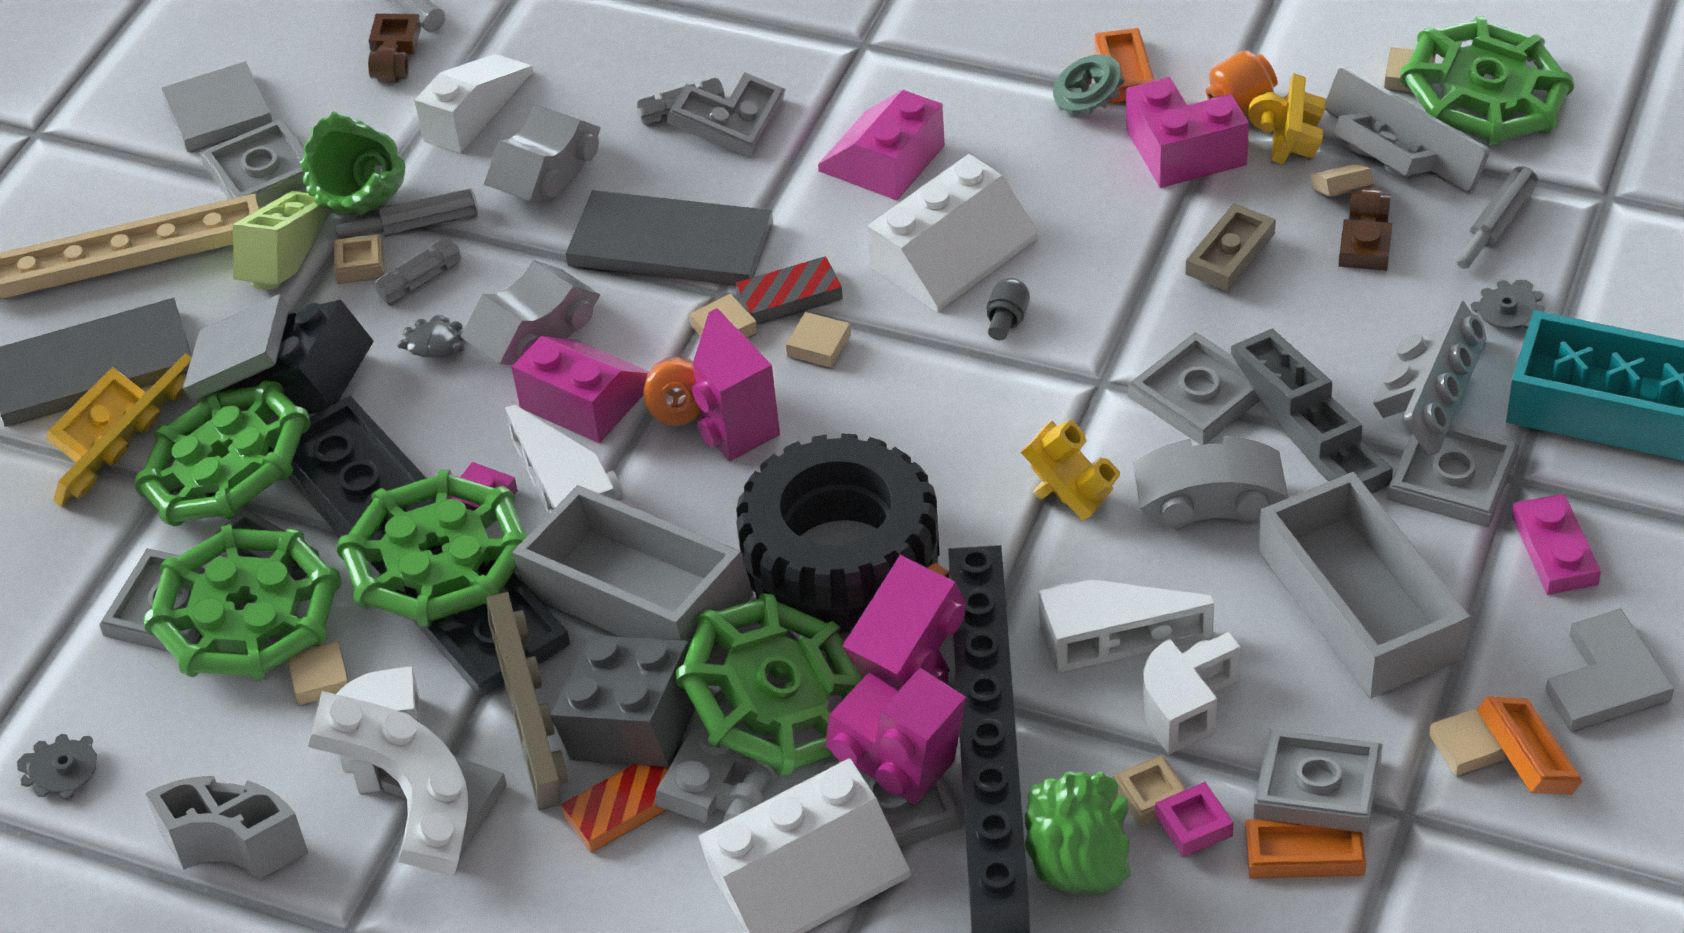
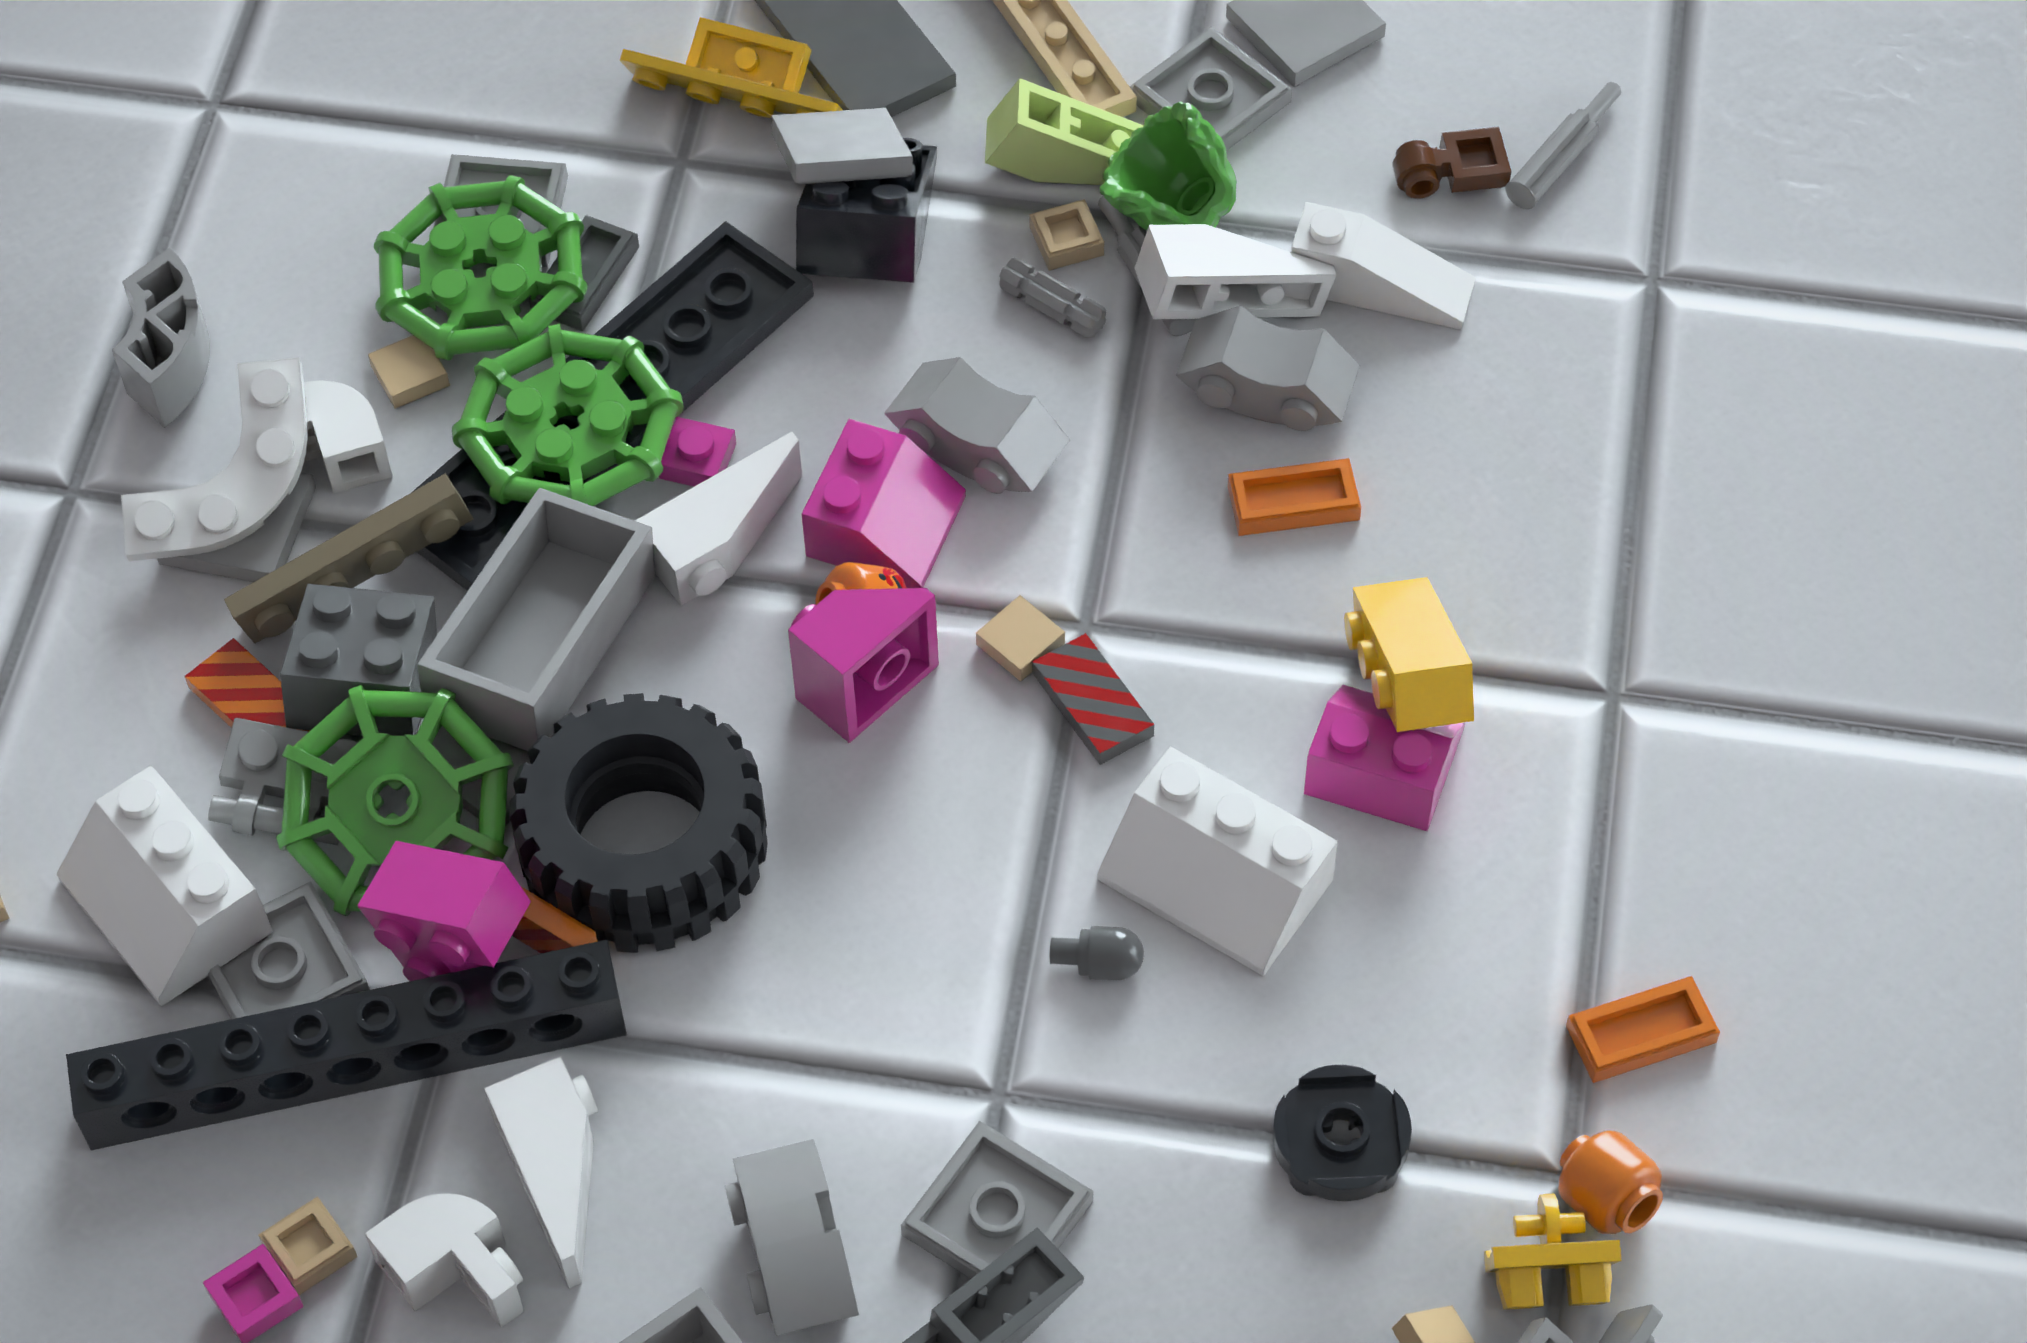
camera: 75 degrees right, 10 degrees up
(58, 766) = (264, 180): dark grey piece -> none
(198, 459) = (695, 182): bright green plate -> none
(433, 337) = (941, 337): dark grey piece -> none
(452, 161) = (1209, 270): none -> white slope
(650, 164) = (1294, 497): none -> orange tile
(651, 109) = (1428, 501): light grey axle -> none
(669, 237) = (1165, 549): dark grey tile -> none
(731, 122) = (1392, 551): light grey tile -> none
(818, 340) = (1008, 749): tan tile -> none
(827, 99) = (1410, 654): none -> yellow brick
(901, 735) = (303, 934): dark pink brick -> none
(1066, 471) = (785, 1062): yellow hips -> none
(1075, 80) = (1583, 965): sand green gear -> none
(1078, 833) = (198, 1163): bright green hair -> none
(1159, 222) = (1335, 1170): none -> black plate
(1184, 139) = (1470, 1113): dark pink brick -> none
(1230, 247) = (1268, 1214): dark tan plate -> none

